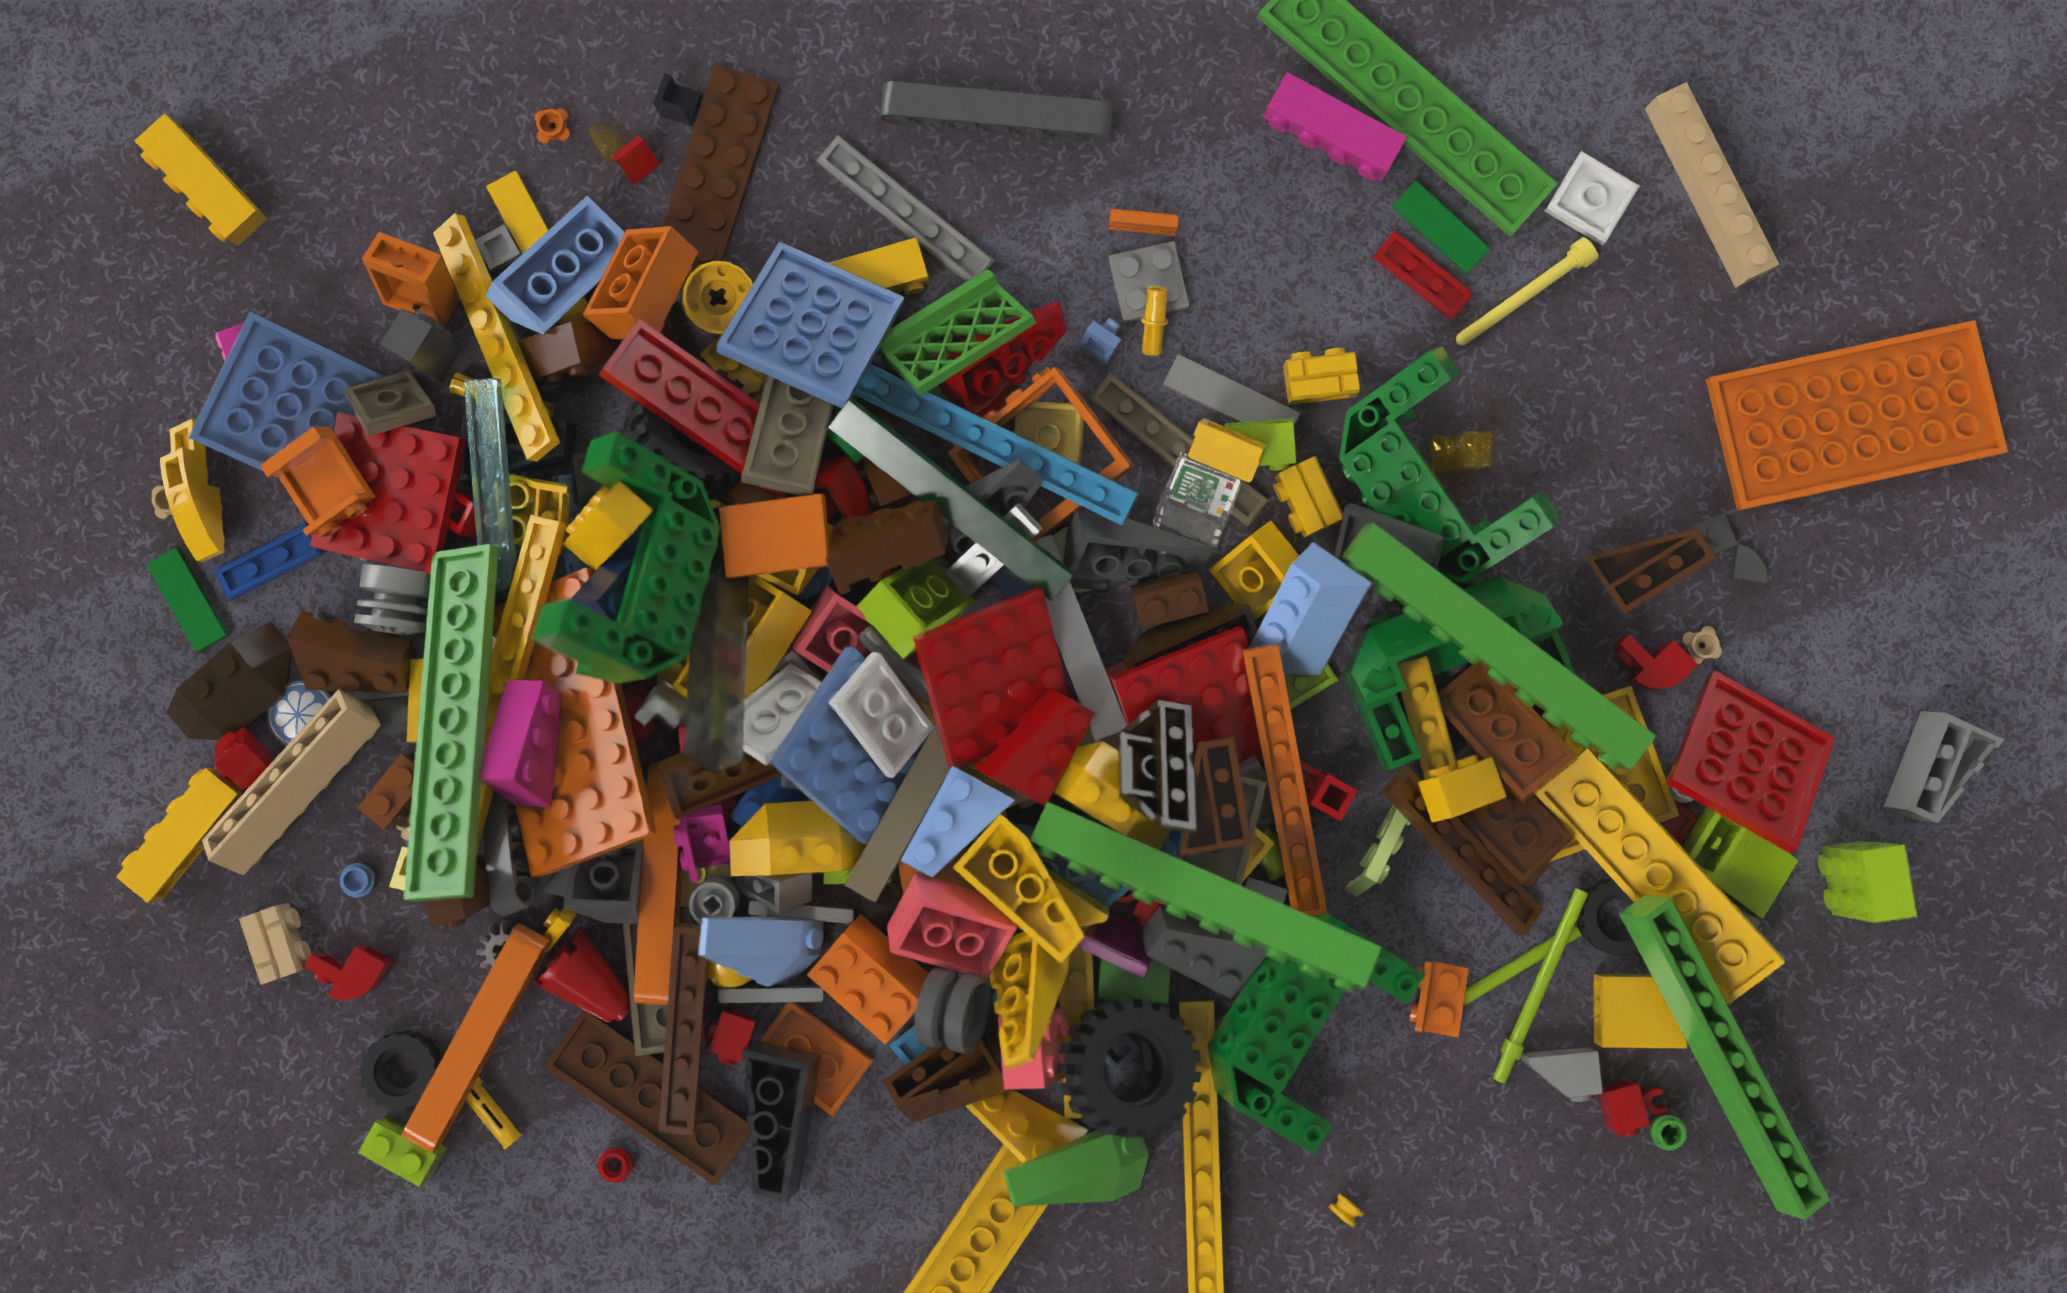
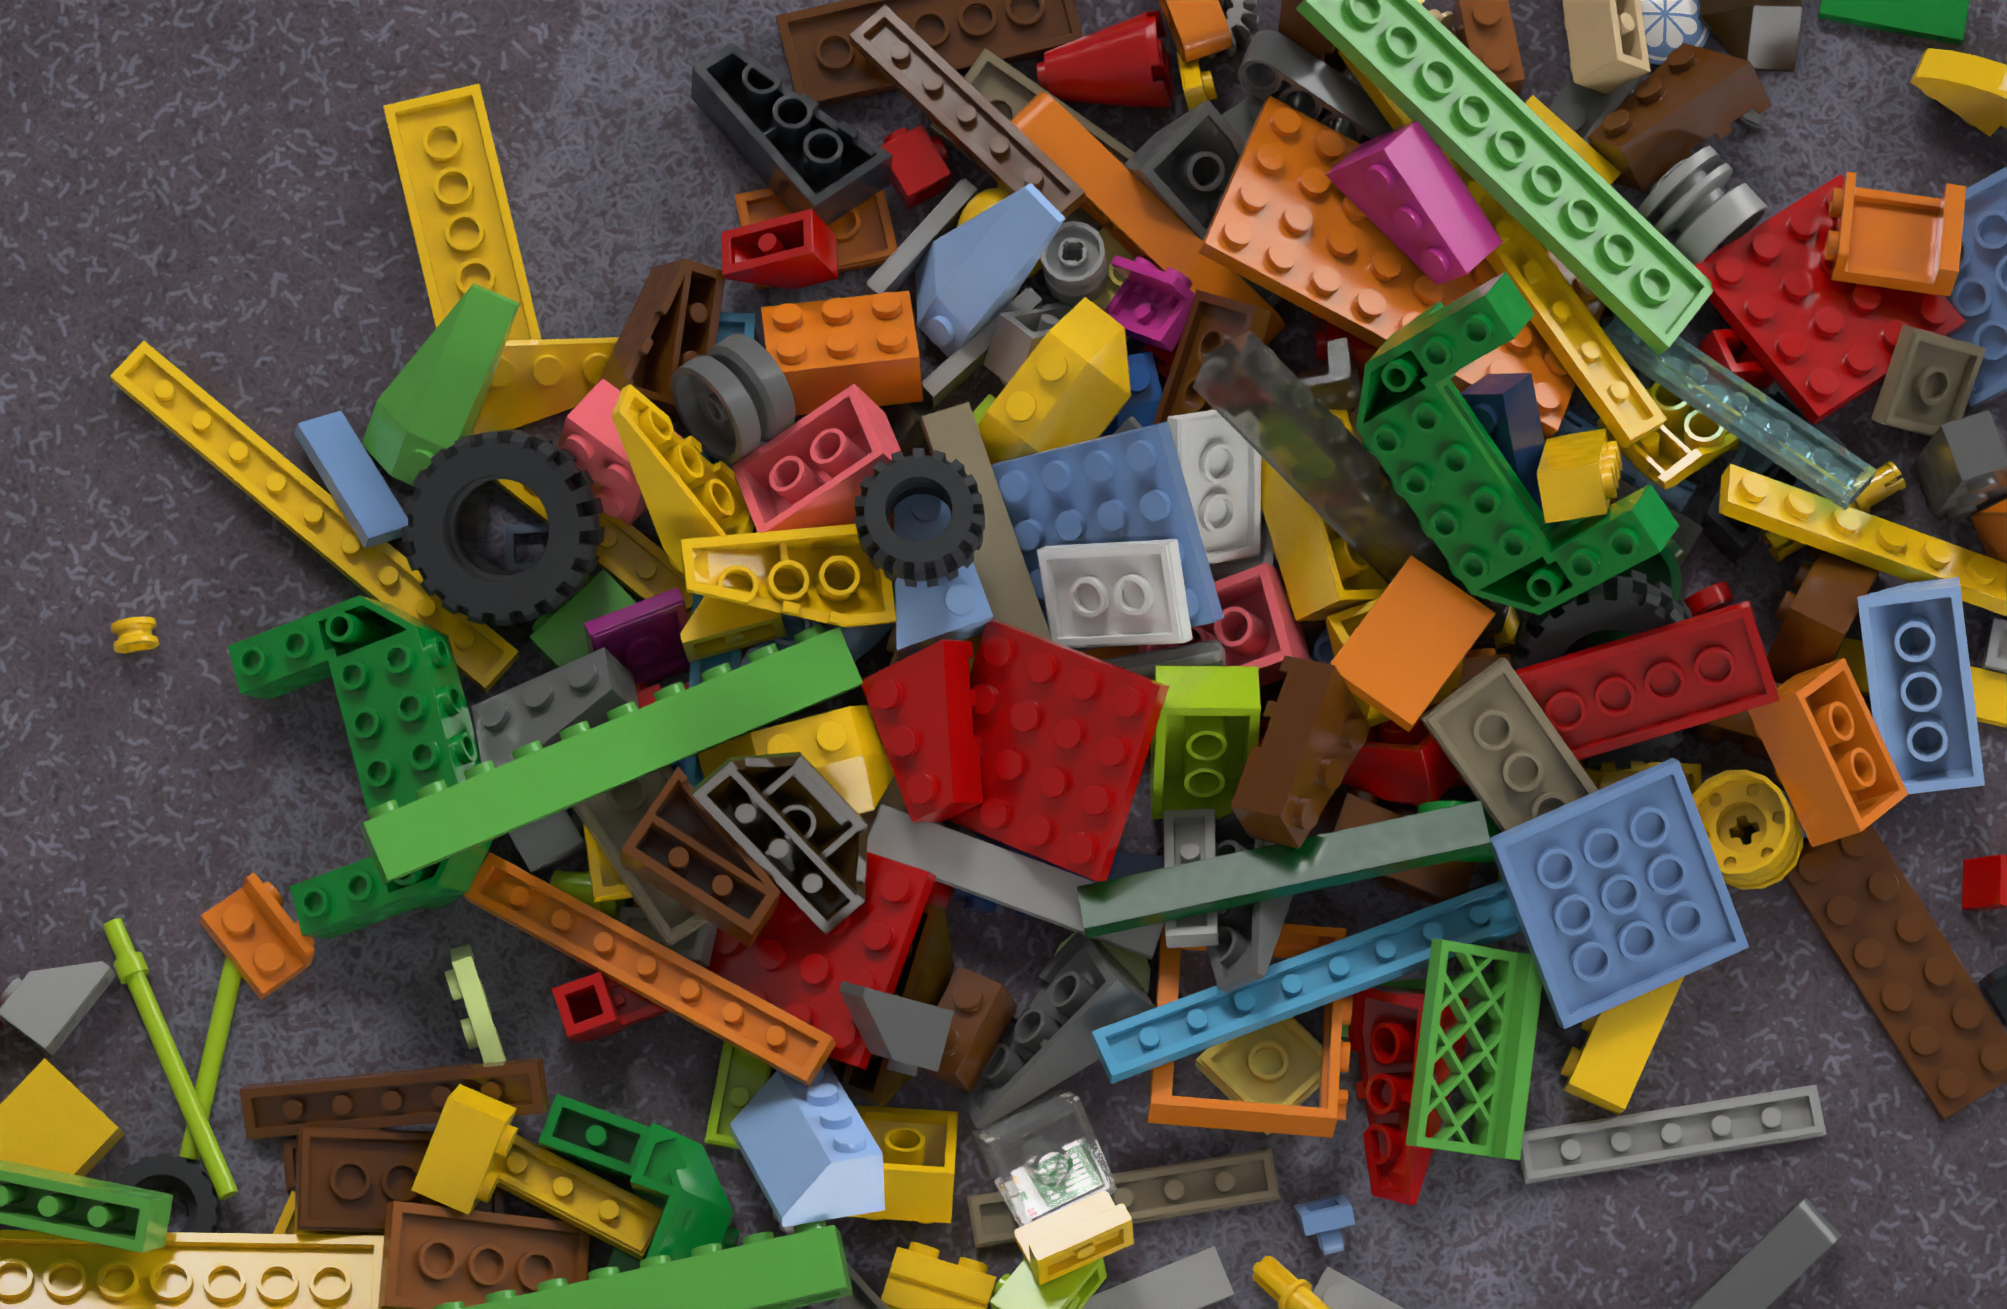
camera: 125 degrees right, 10 degrees down
(266, 563) = (1864, 116): blue tile -> none
(608, 420) = (1710, 599): none -> red tile
(846, 1061) = (781, 252): none -> red slope
(938, 879) = (910, 477): none -> black tyre
(1165, 1175) = (352, 478): none -> medium blue tile
(1206, 624) = (898, 1028): none -> dark grey slope

